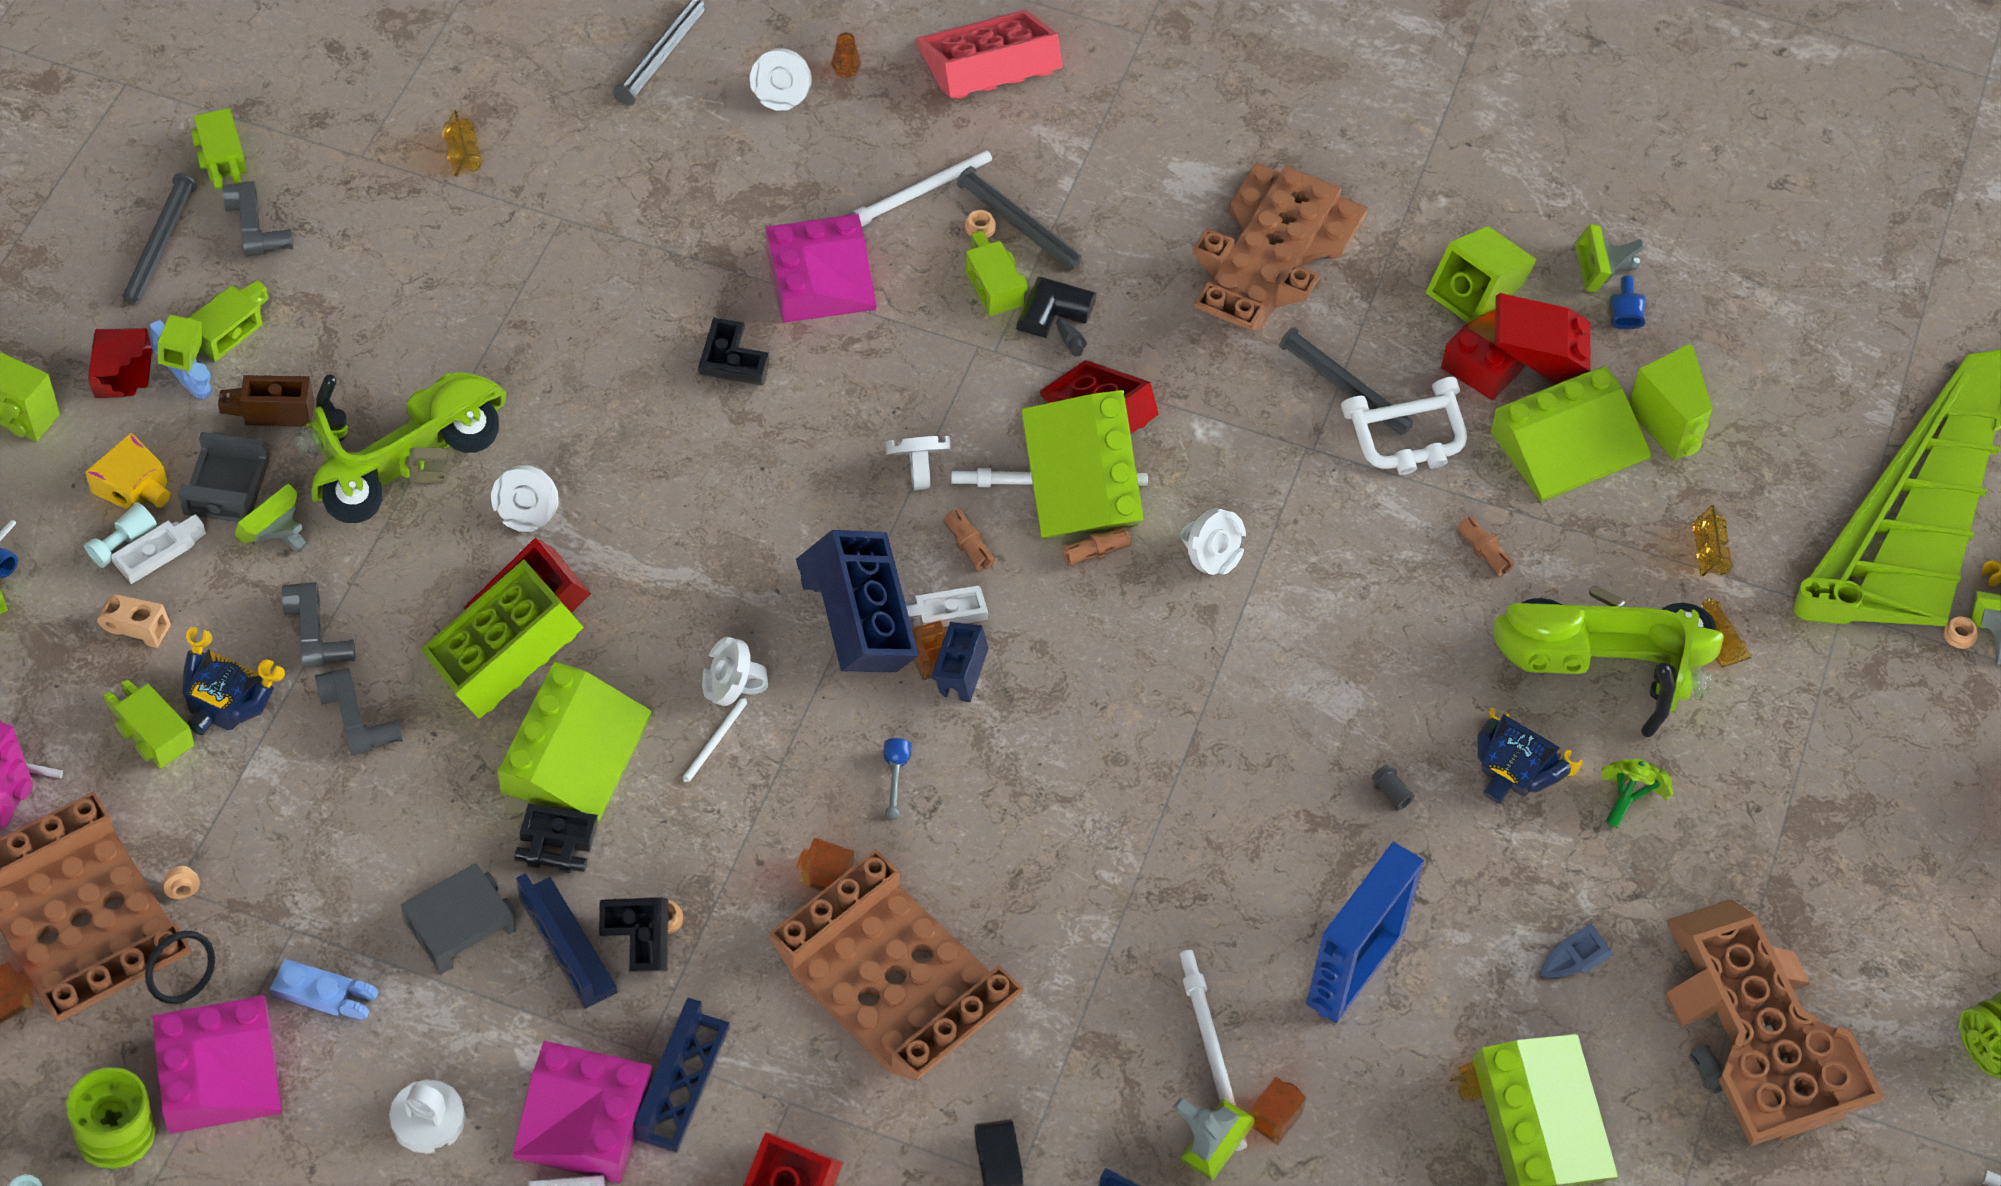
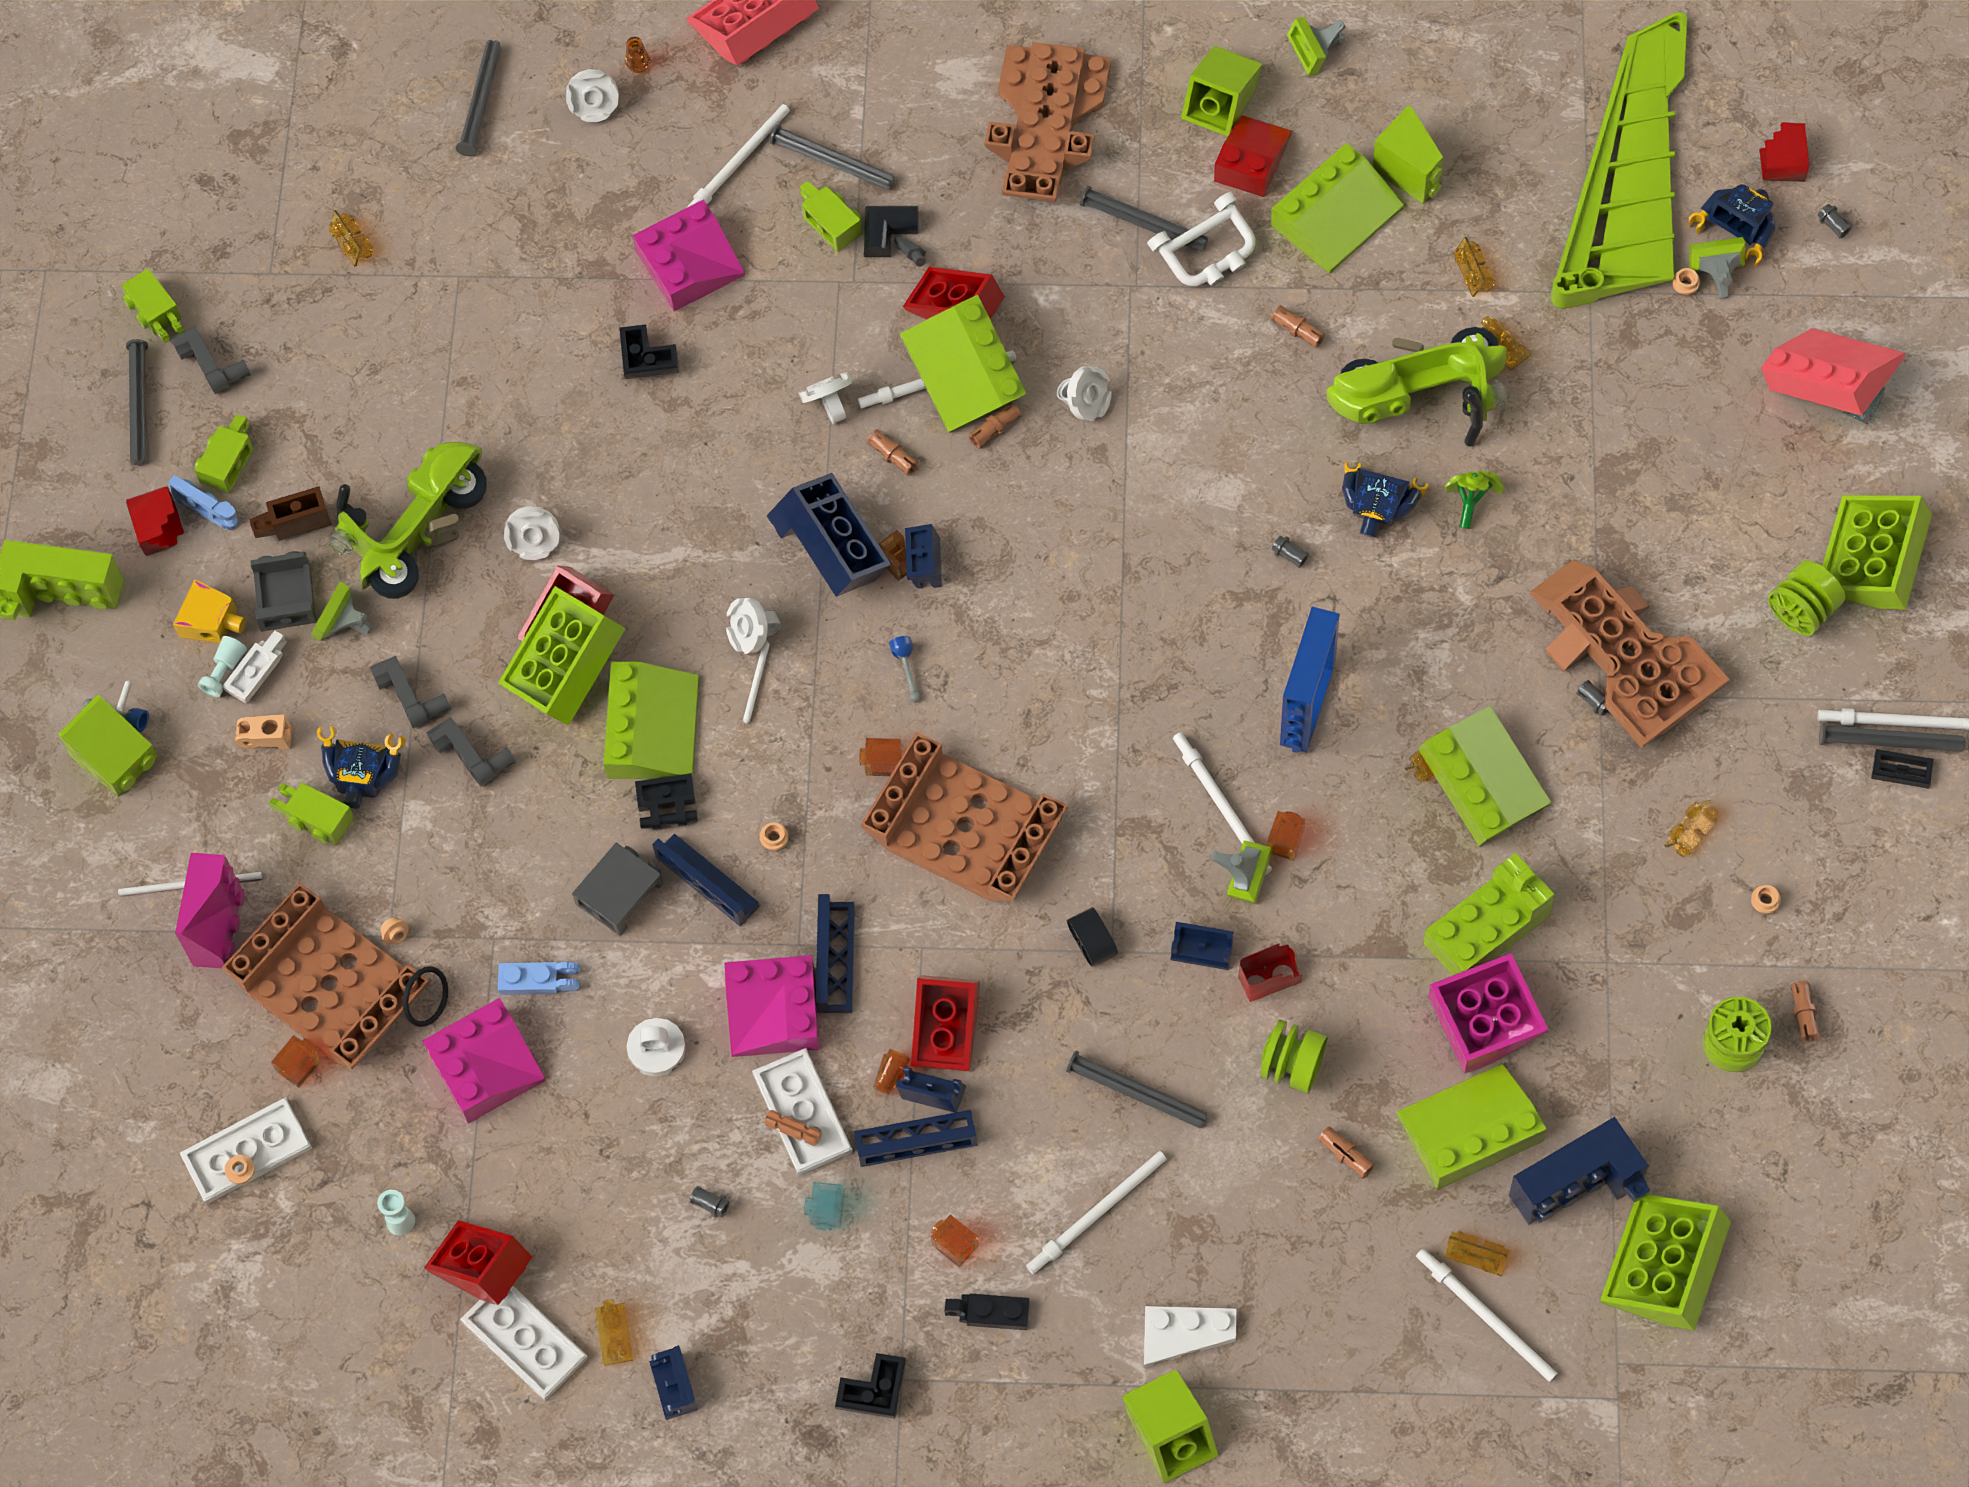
camera: 10 degrees left, 10 degrees up
(111, 1118) = (420, 1113): lime wheel -> none
(179, 342) = (202, 490): lime brick -> none
(645, 923) = (763, 847): black brick -> none
(948, 606) = (897, 515): white hinge -> none
(980, 221) = (799, 168): light nougat plate -> none
(1543, 337) = (1290, 133): red slope -> none
(1577, 953) = (1469, 640): sand blue plate -> none
(1627, 306) = (1346, 79): blue piece -> none

